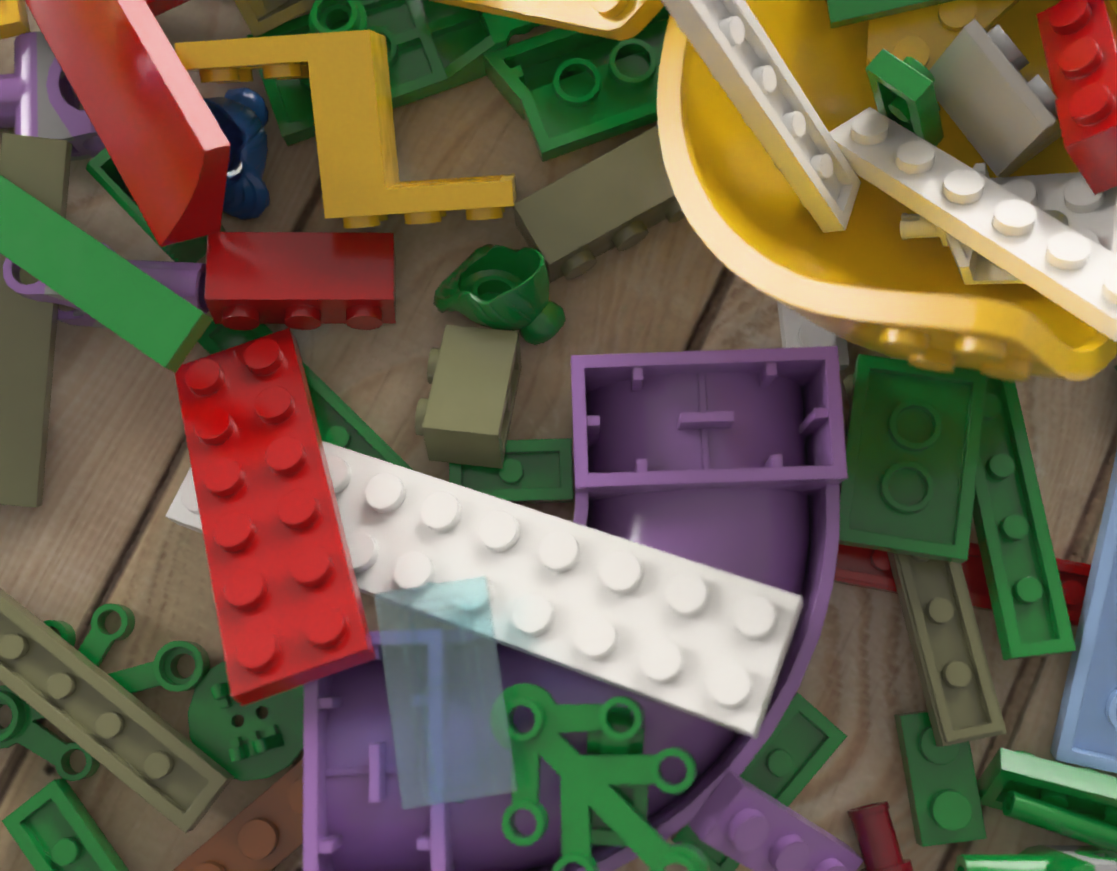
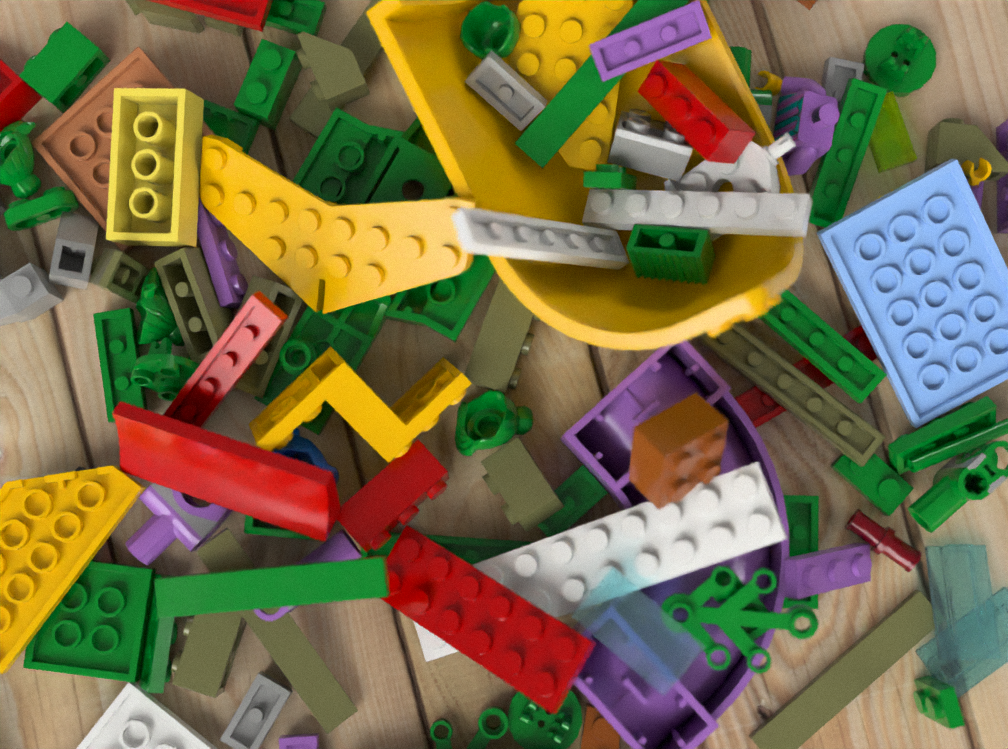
camera: 45 degrees left, 5 degrees up
(704, 488) = (677, 450): none -> dark orange brick
(910, 243) = (671, 253): none -> green brick
(911, 458) = (753, 360): green plate -> none

